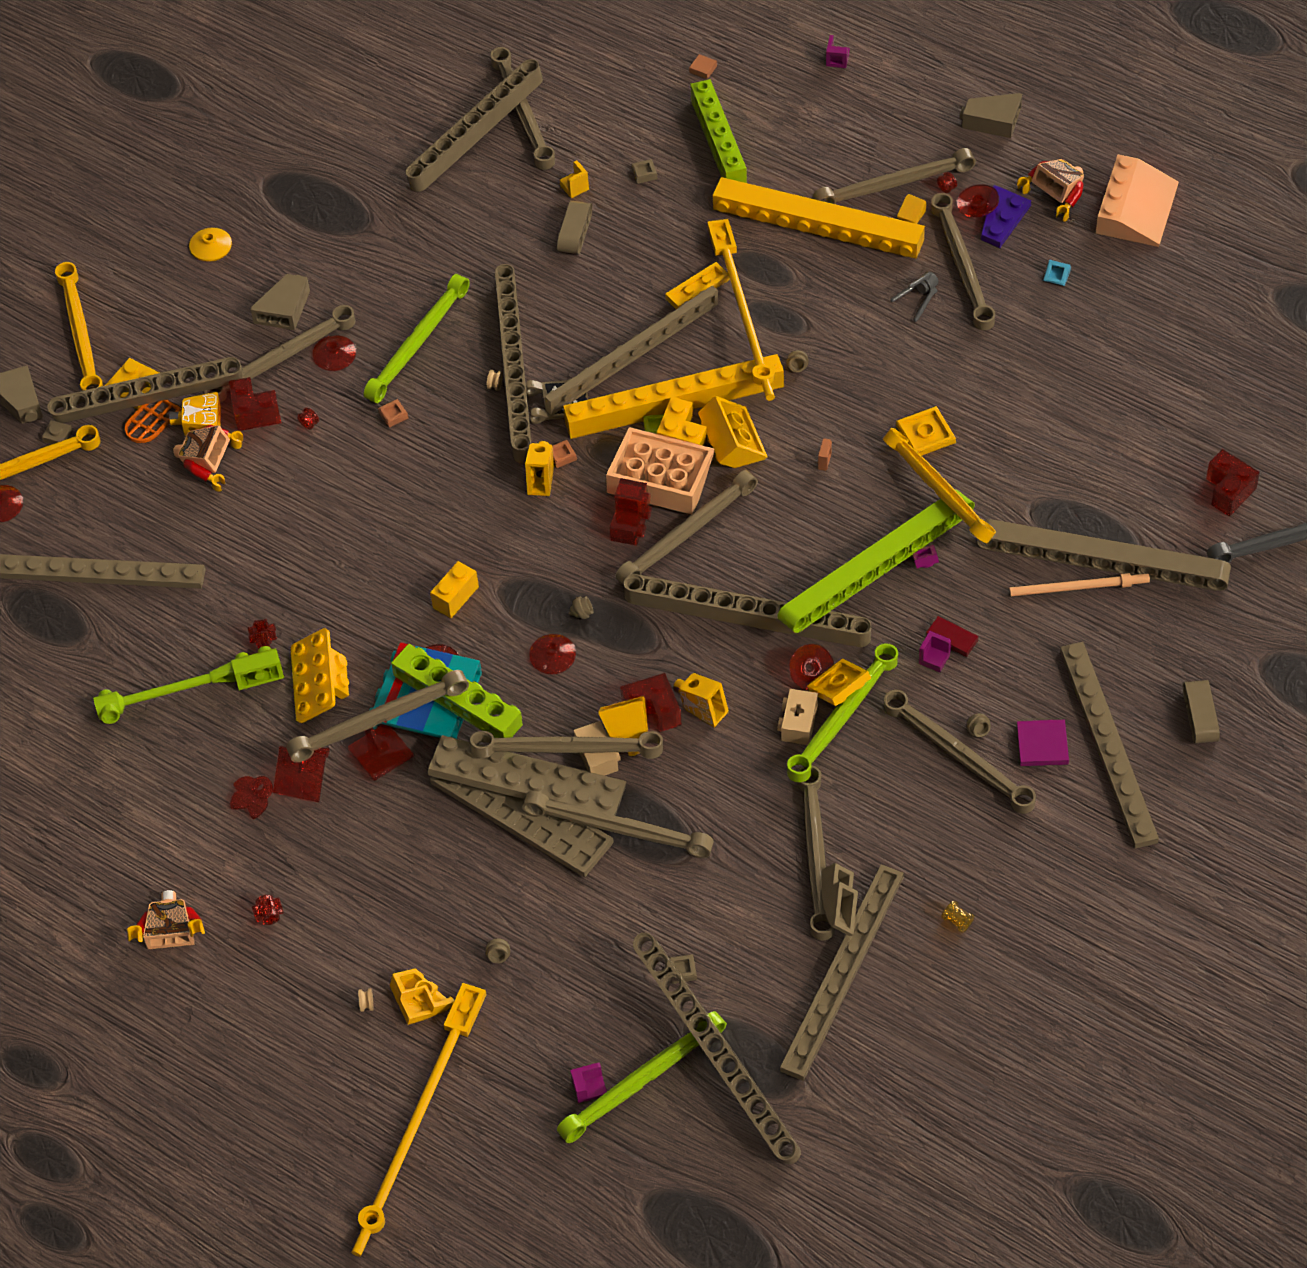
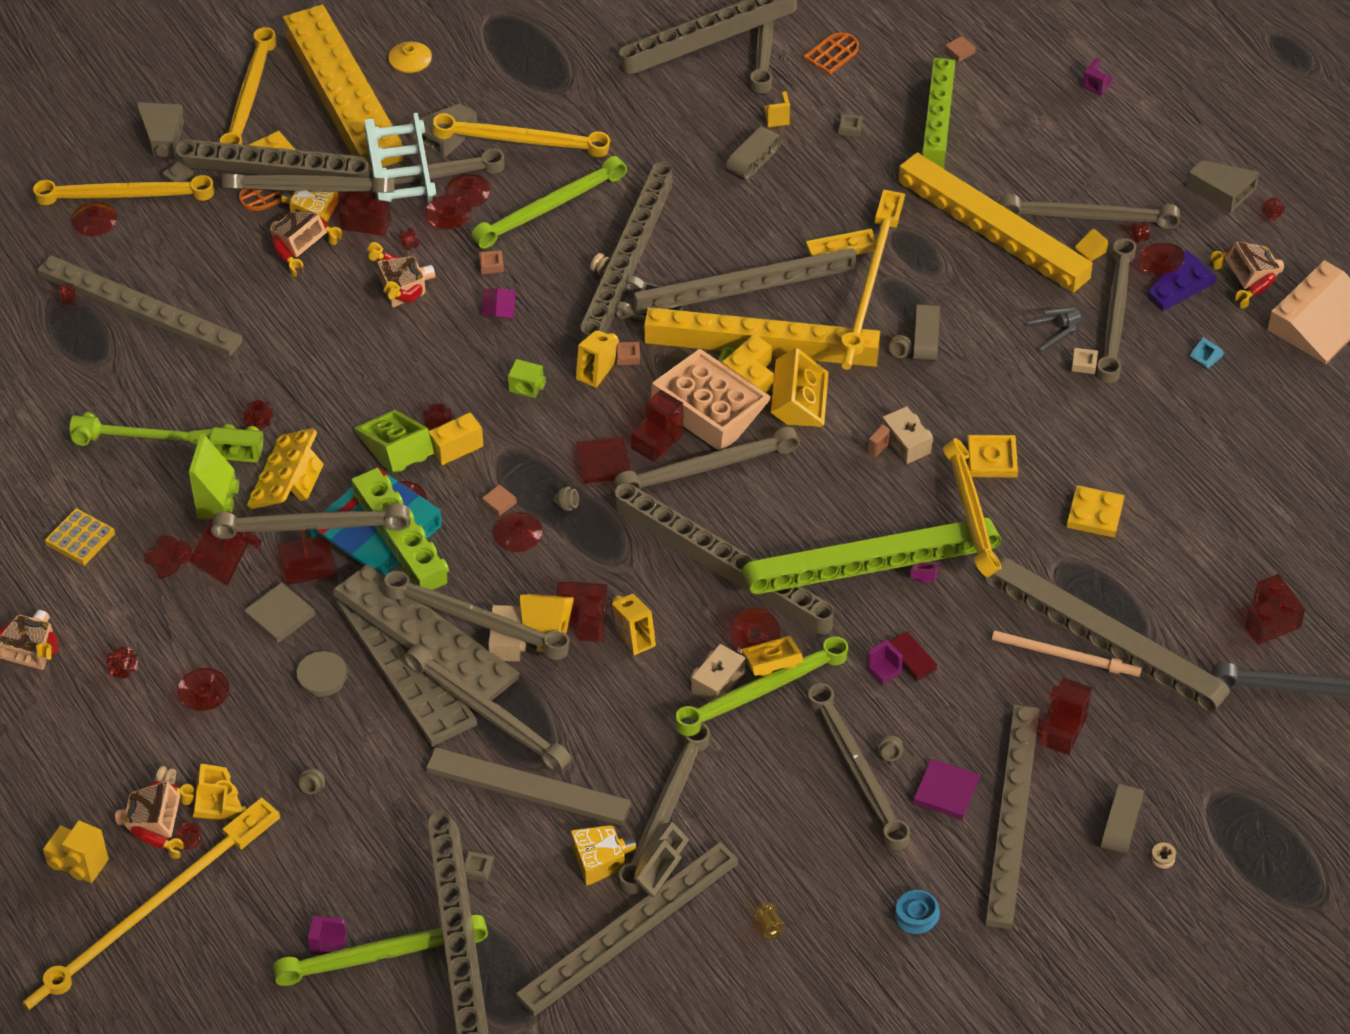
camera: 20 degrees right, 5 degrees down
(19, 584) = (67, 293): none -> clear red bush
(160, 808) = (80, 537): none -> tile
(166, 295) = (338, 80): none -> yellow brick
(190, 399) = (308, 182): none -> dark tan piece
(241, 350) = (377, 154): none -> light aqua fence
(262, 714) = (211, 481): none -> lime slope
(320, 456) = (400, 276): none -> torso
(326, 1098) = (77, 851): none -> yellow brick
(331, 380) = (449, 212): none -> clear red dish
(351, 897) = (200, 682): none -> clear red dish
(358, 284) = (520, 135): none -> yellow piece
(375, 1036) = (153, 812): none -> torso
(382, 809) = (279, 612): none -> dark tan tile
(400, 610) = (396, 440): none -> lime slope
(412, 1050) = (196, 838): none -> clear red bush
(422, 449) = (498, 303): none -> magenta panel
(426, 575) = (437, 415): none -> clear red gear
(451, 850) = (322, 673): none -> dark tan tile
(486, 510) = (526, 378): none -> lime brick
(521, 631) = (499, 500): none -> nougat tile
(591, 99) = (834, 58): none -> orange window
(593, 560) = (602, 459): none -> clear red tile
(688, 880) = (529, 786): none -> dark tan tile
(783, 913) = (600, 852): none -> yellow torso
(813, 340) = (926, 332): none -> dark tan beam
(847, 439) = (908, 435): none -> tan brick
(960, 317) = (1084, 360): none -> tan plate
(1038, 449) = (1095, 511): none -> yellow plate
(1047, 121) = (1273, 208): none -> clear red bush
(1075, 859) = (917, 912): none -> dark azure piece
(1110, 638) = (1067, 715): none -> clear red brick
(1251, 723) = (1170, 853): none -> tan bush

